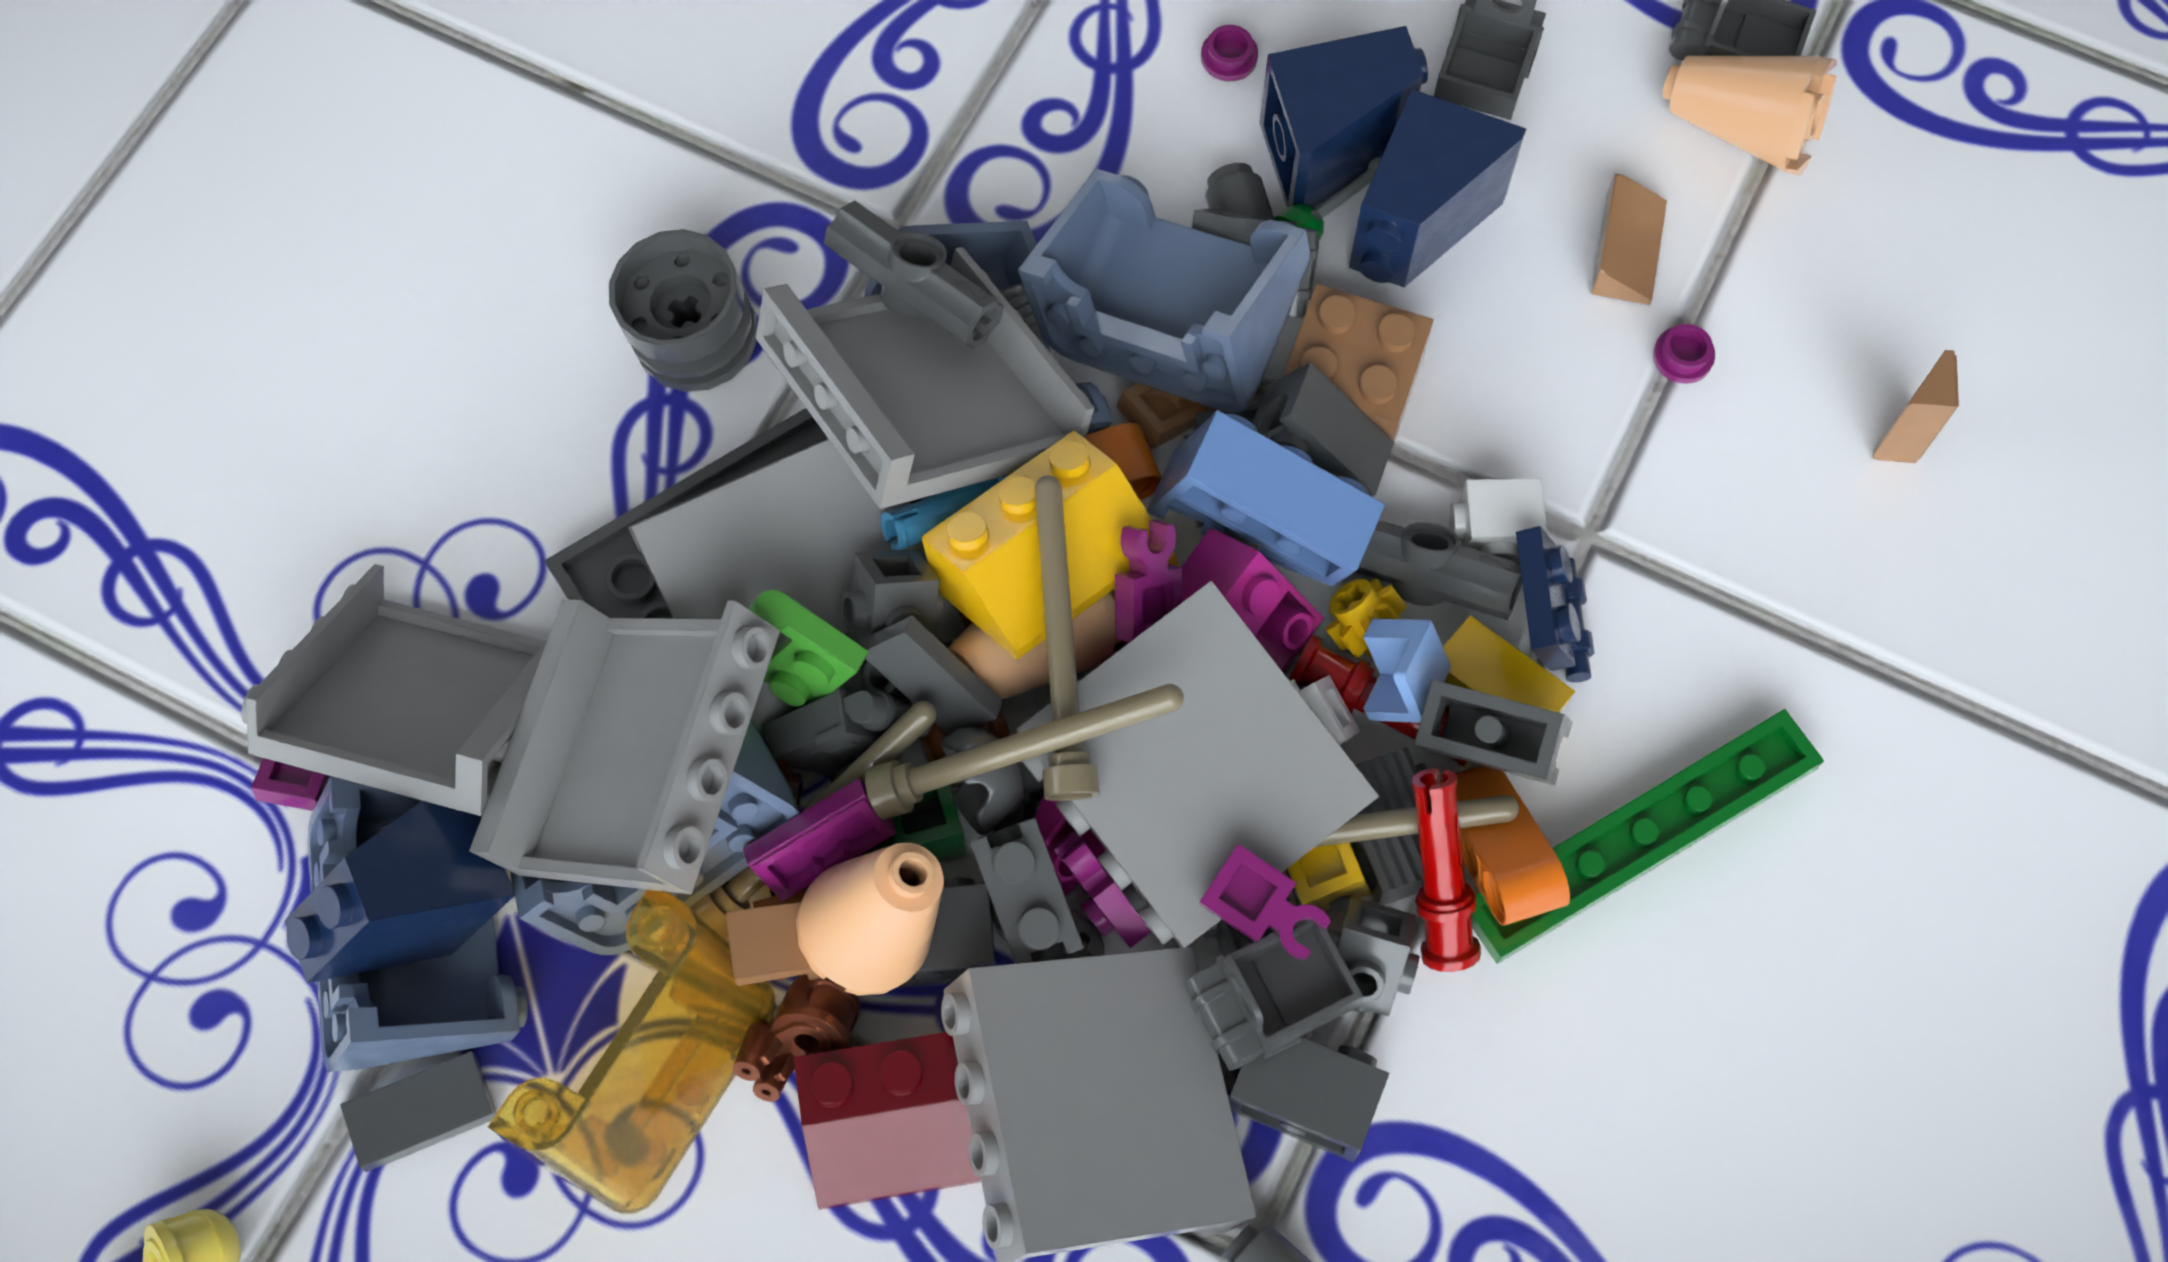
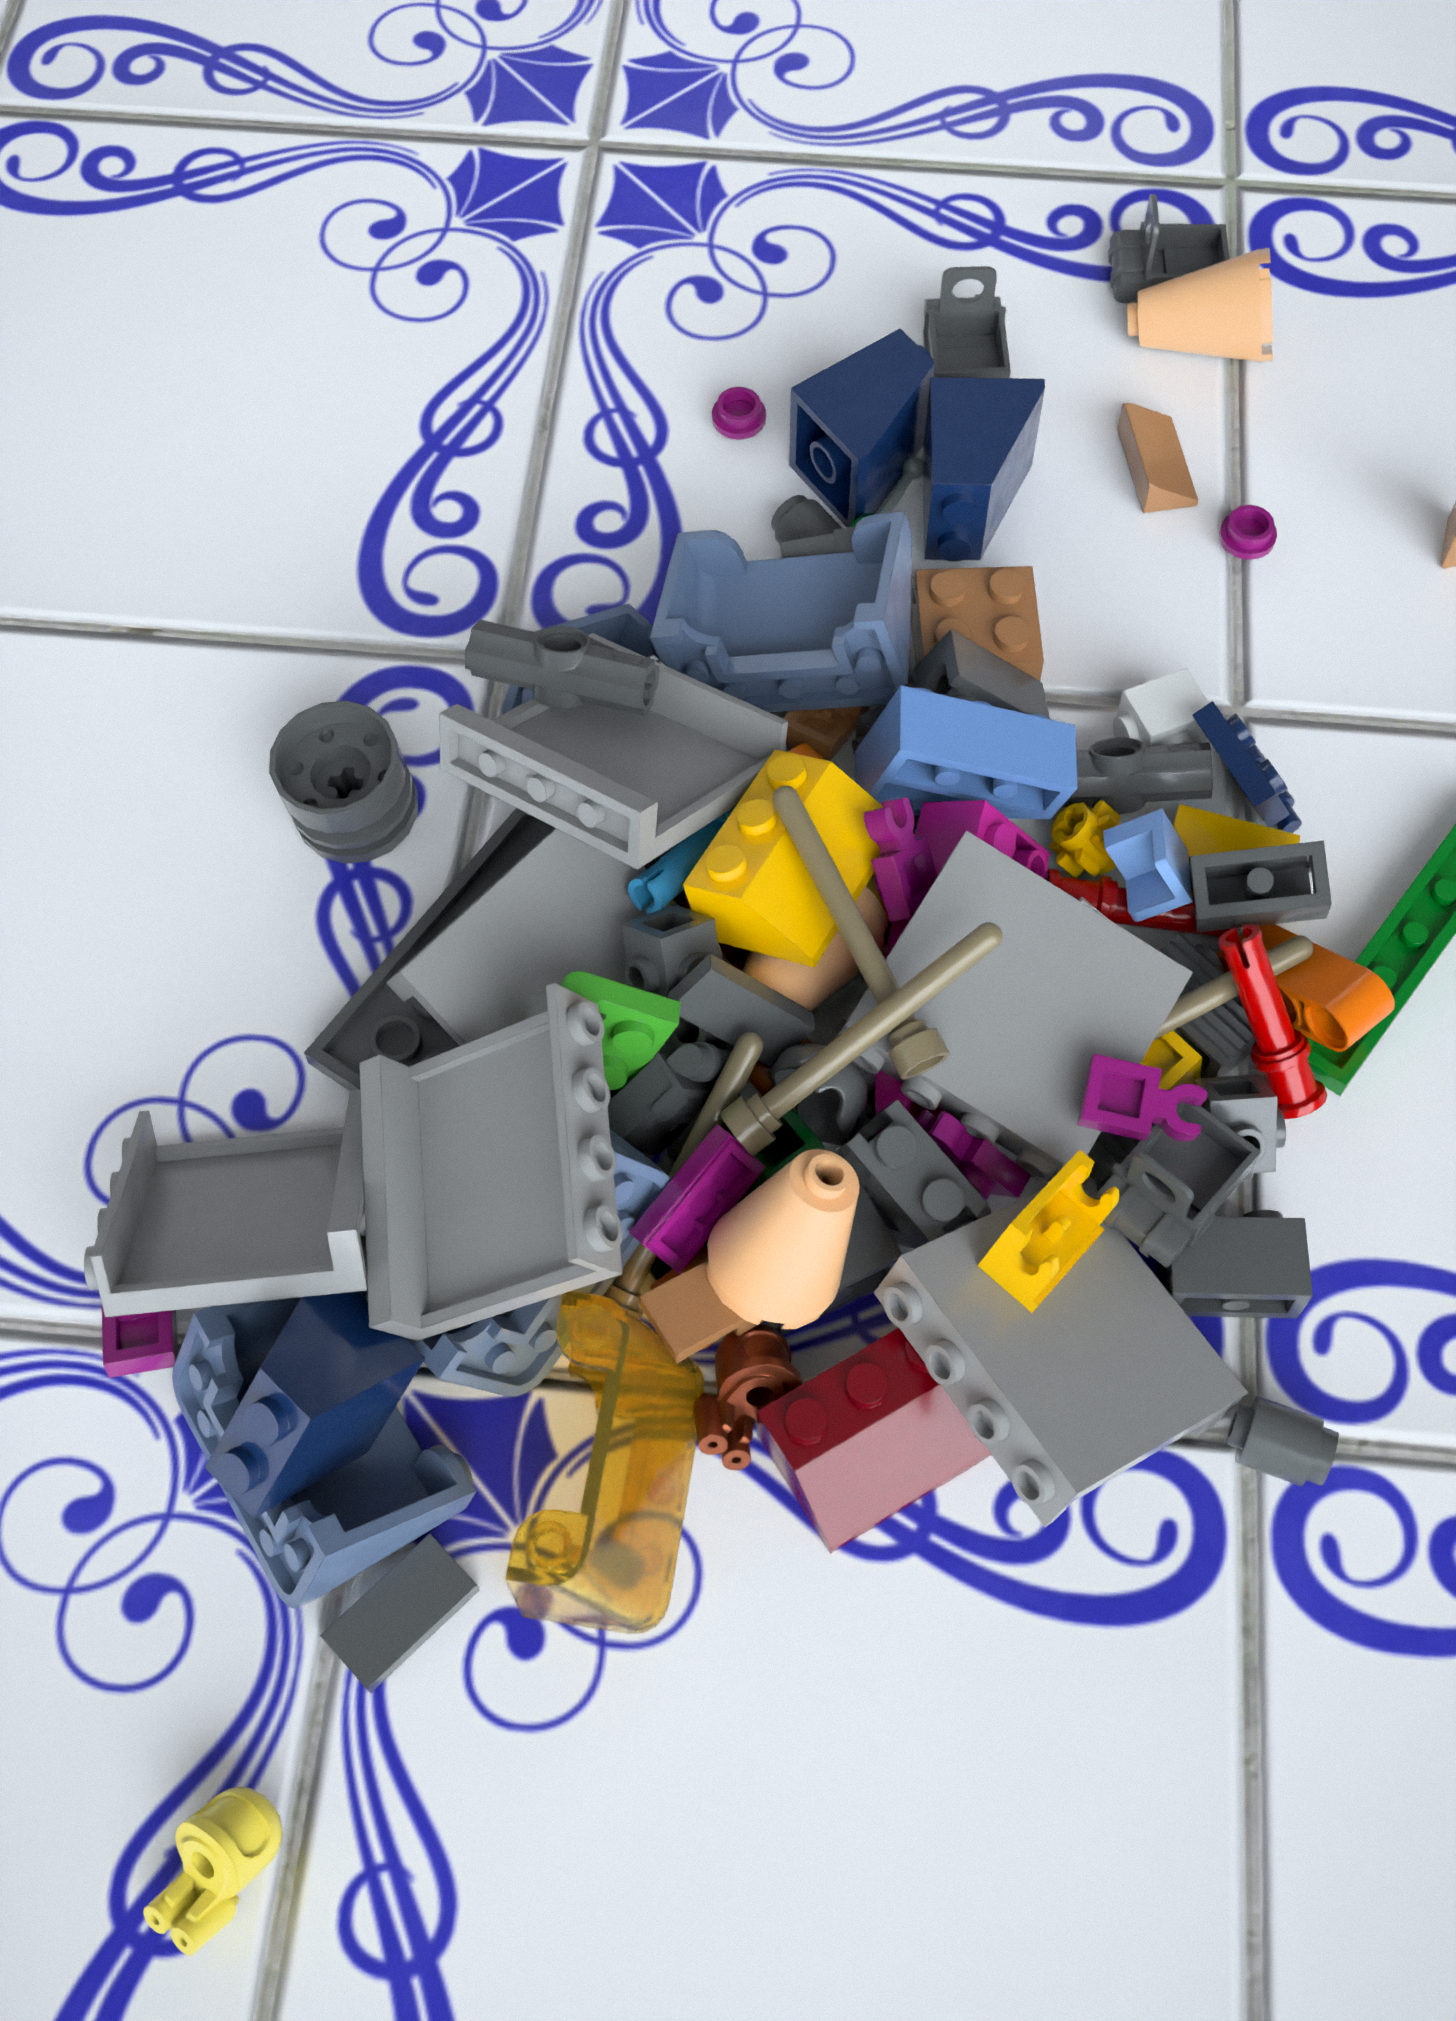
camera: 20 degrees left, 5 degrees down
(1123, 999) = (1049, 1235): none -> yellow hinge

